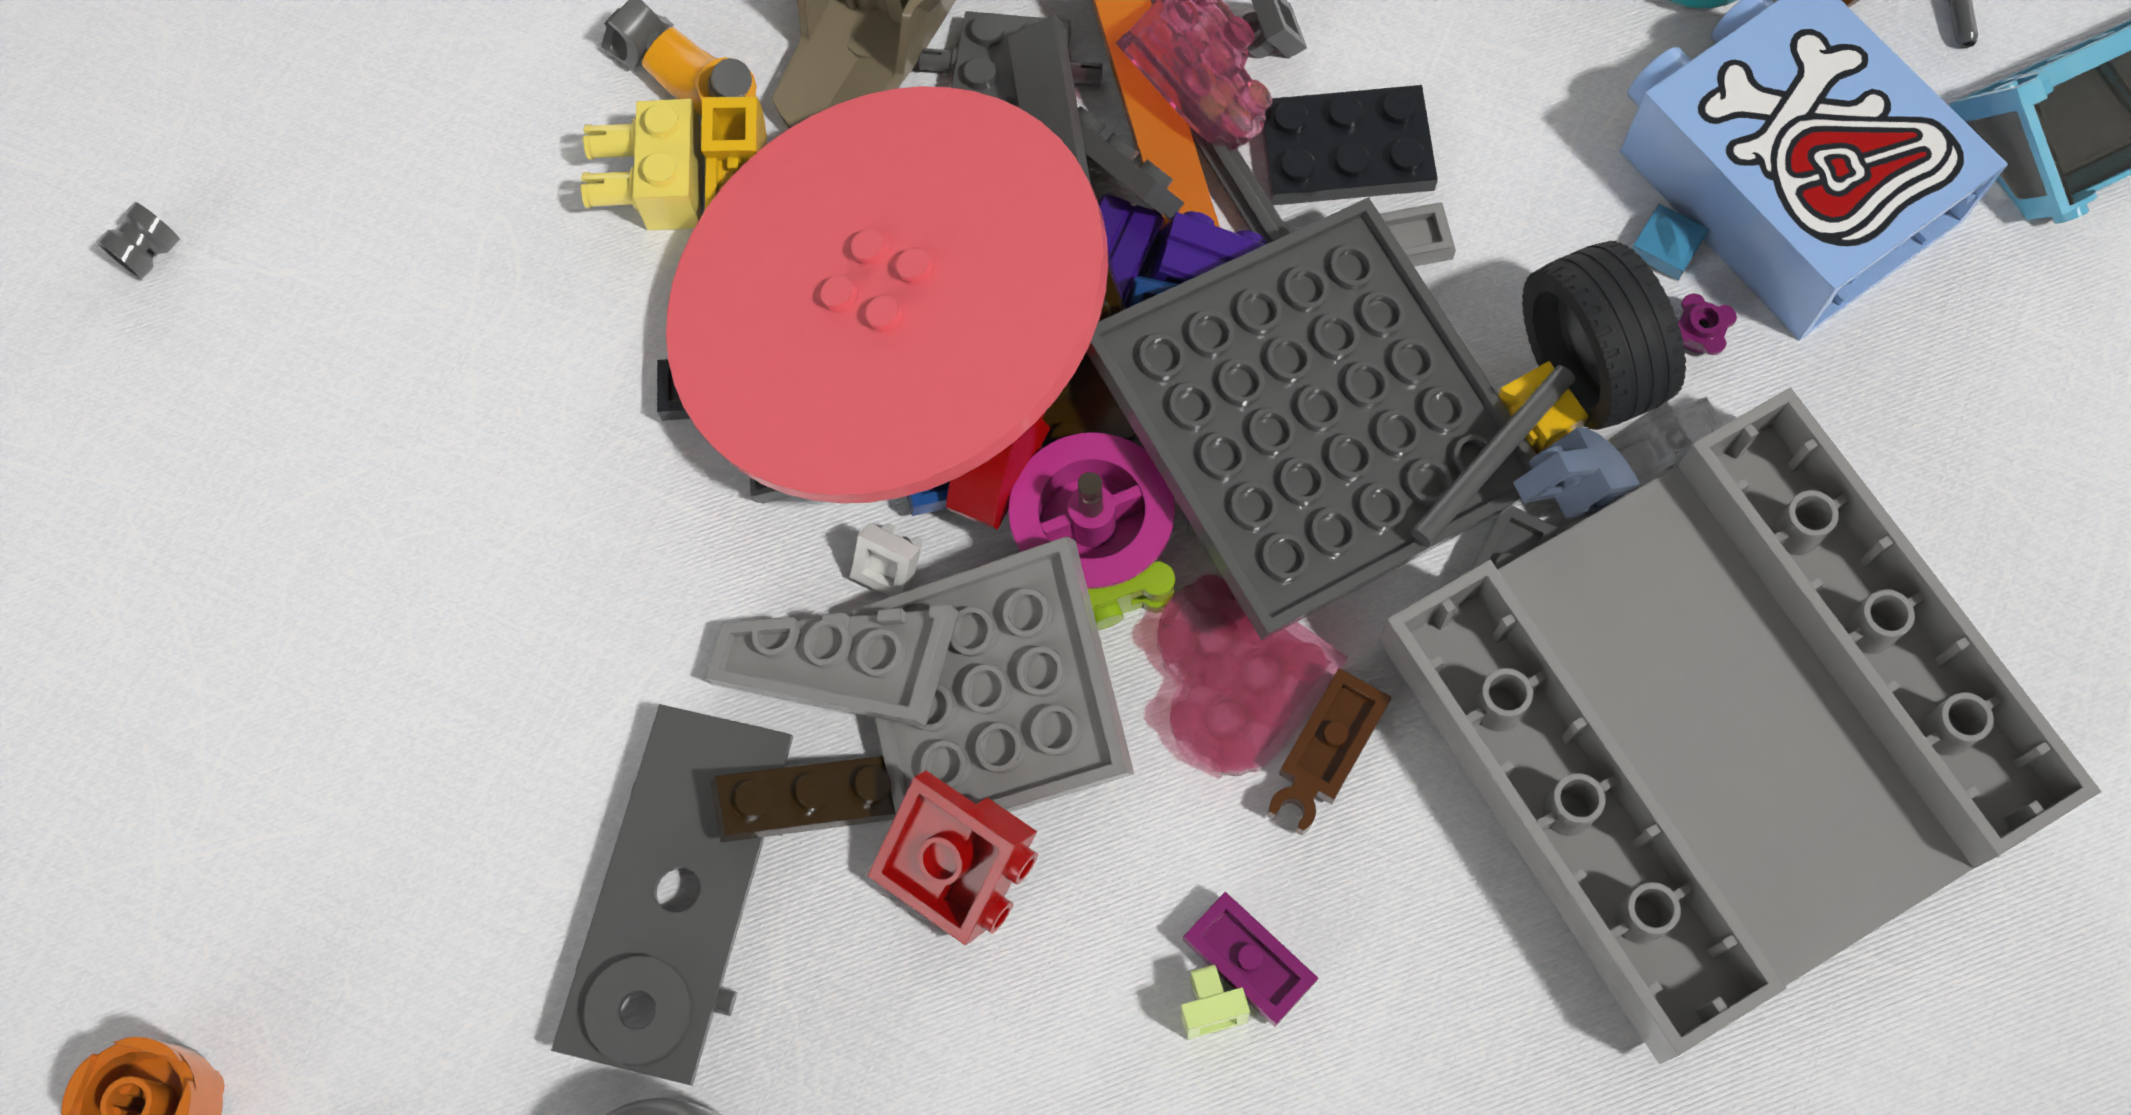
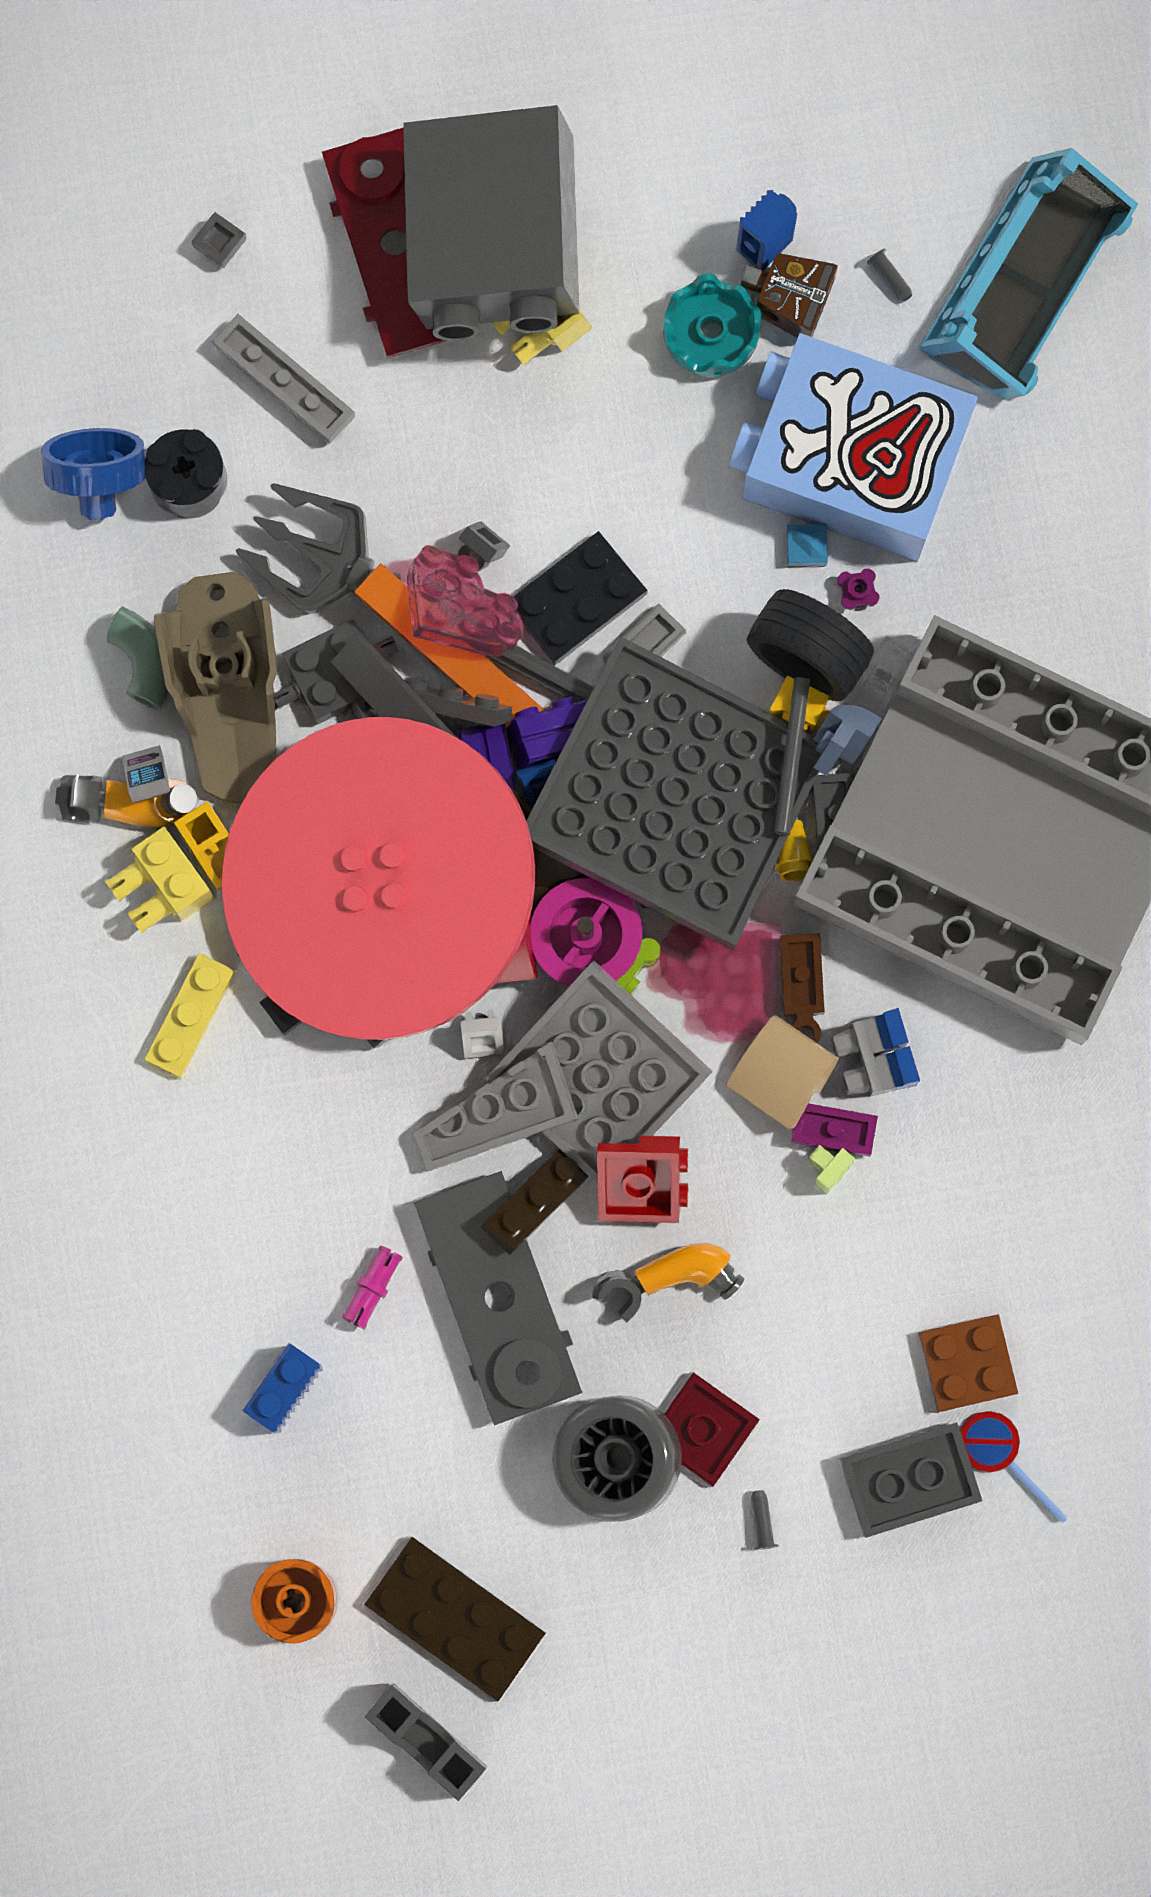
camera: 40 degrees left, 10 degrees up
(339, 828) = (283, 1388): none -> blue brick
(539, 777) = (372, 1287): none -> dark pink pin
(574, 334) = (190, 1015): none -> light yellow plate
(716, 39) = (146, 774): none -> tile
(945, 1009) = (692, 1263): none -> light orange piece
(1228, 839) = (782, 1071): none -> tan slope
(1377, 901) = (873, 1038): none -> light grey hips
(1420, 577) = (795, 855): none -> yellow cone

